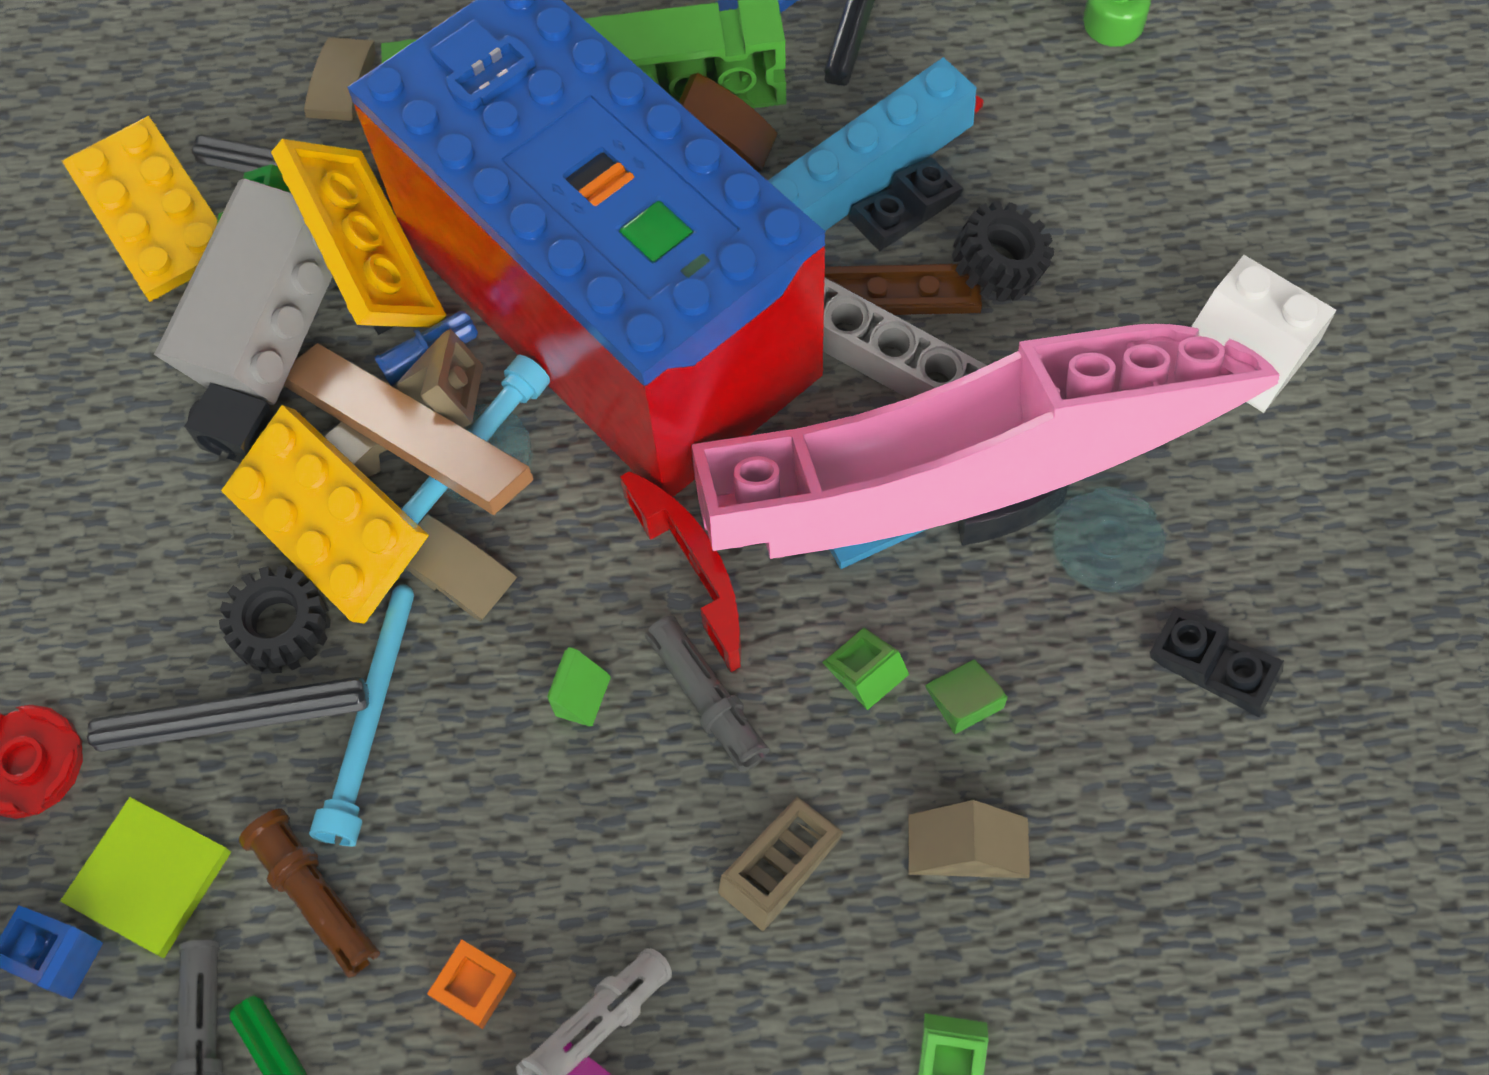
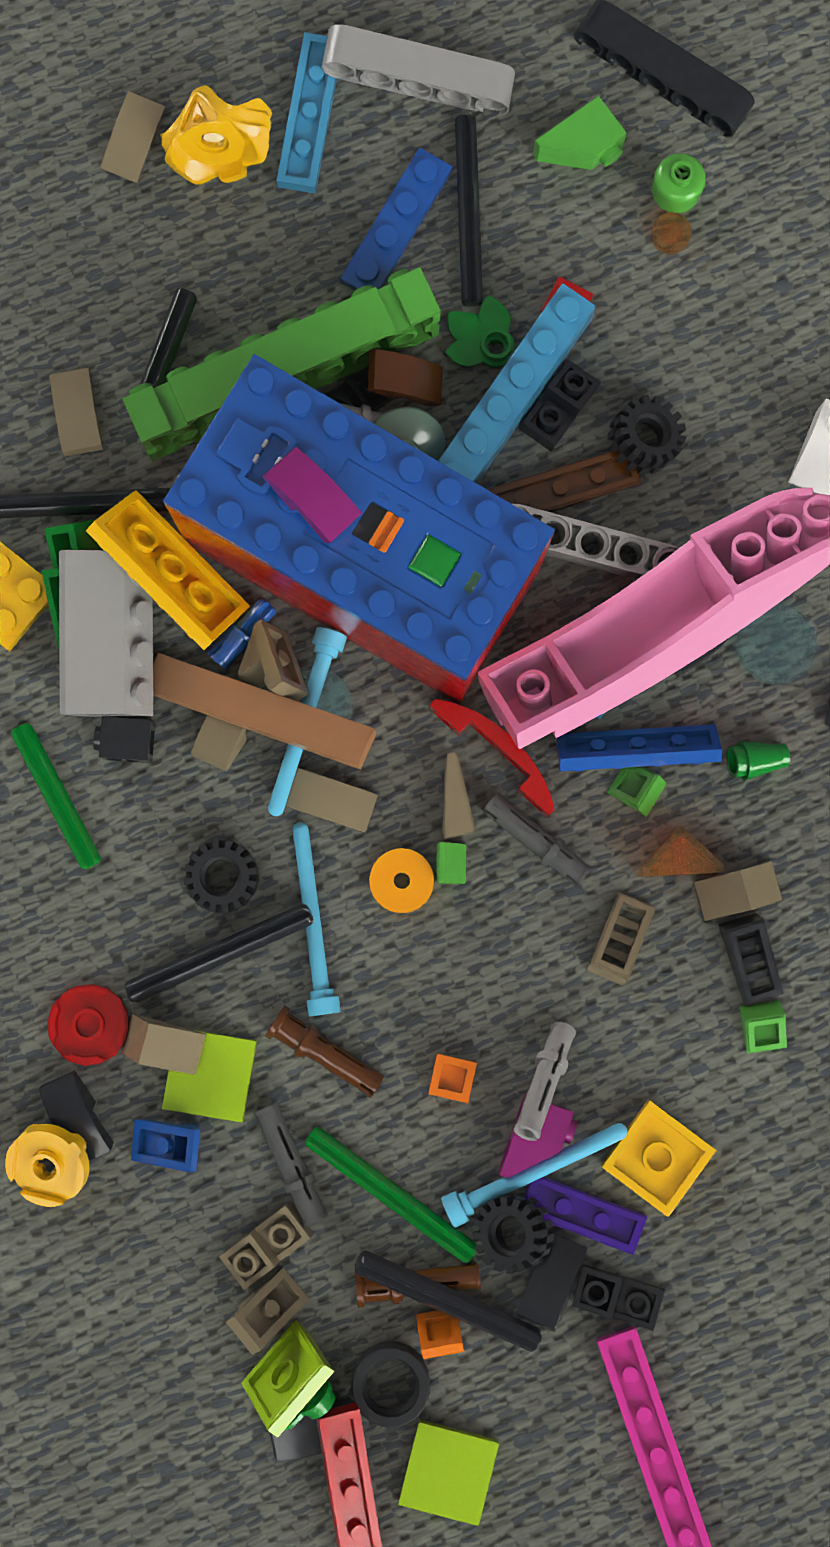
camera: 25 degrees left, 20 degrees up
(101, 812) = (163, 1045): none -> dark tan slope
(121, 473) = (56, 796): none -> green axle
(324, 514) = (225, 791): yellow plate -> none
(492, 675) = (383, 876): none -> light orange piece
(524, 105) = (313, 494): none -> magenta slope
(610, 622) = (456, 806): none -> dark tan slope
(827, 111) = (476, 332): none -> green plate
(862, 608) = (638, 747): none -> blue plate
(894, 769) = (680, 856): none -> clear orange slope
(966, 695) = (710, 788): bright green slope -> none
(984, 924) = (740, 926): none -> black slope
(1042, 671) = (756, 758): none -> green cone
(1095, 63) = (671, 233): none -> clear orange tile

